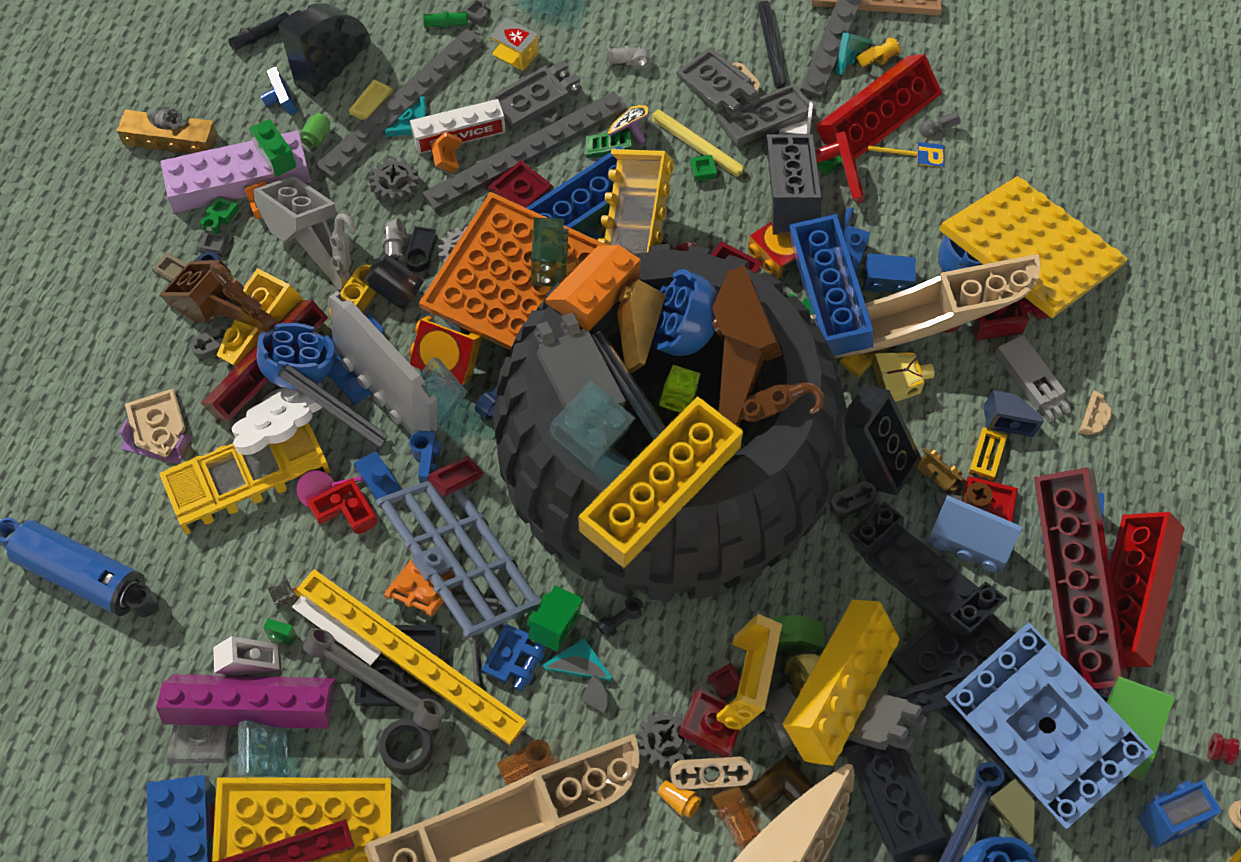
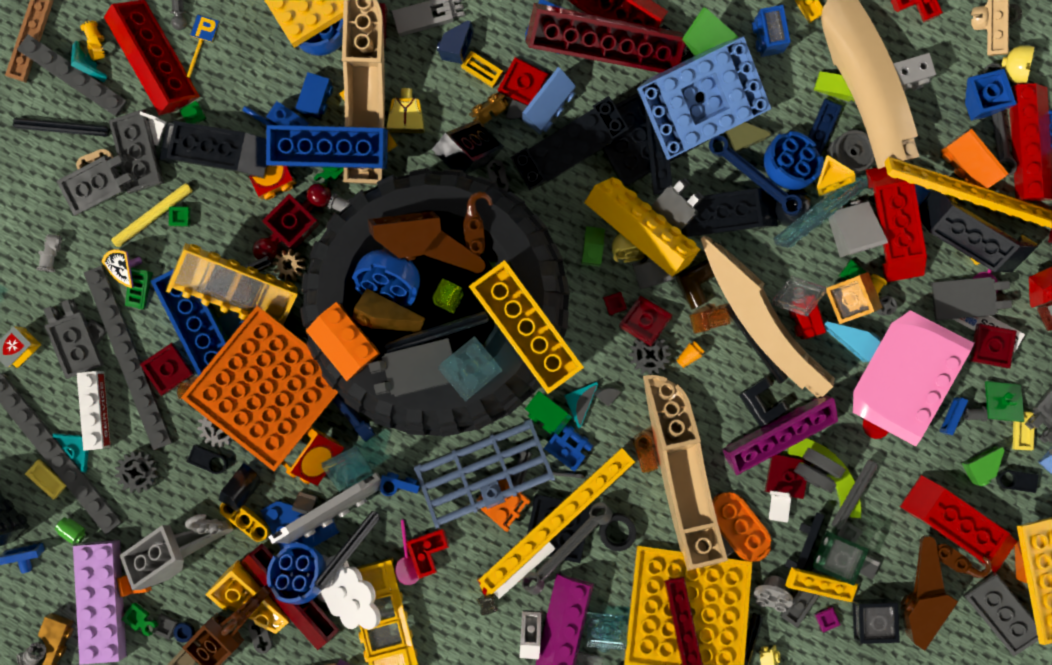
camera: 85 degrees left, 25 degrees up
(272, 147) = (93, 570): green brick -> none
(279, 632) = (516, 610): green plate -> none
(376, 476) = (408, 523): blue tile -> none
(394, 241) = (190, 478): light grey connector -> none
(444, 152) = (118, 425): orange bracket -> none
(455, 476) = (419, 465): dark red tile -> none
(549, 252) = (257, 363): clear green piece -> none
(692, 783) = (686, 324): tan beam -> none
(760, 641) = (621, 283): yellow panel -> none
(844, 148) = (192, 98): red piece -> none
(983, 491) = (519, 93): reddish brown wheel -> none

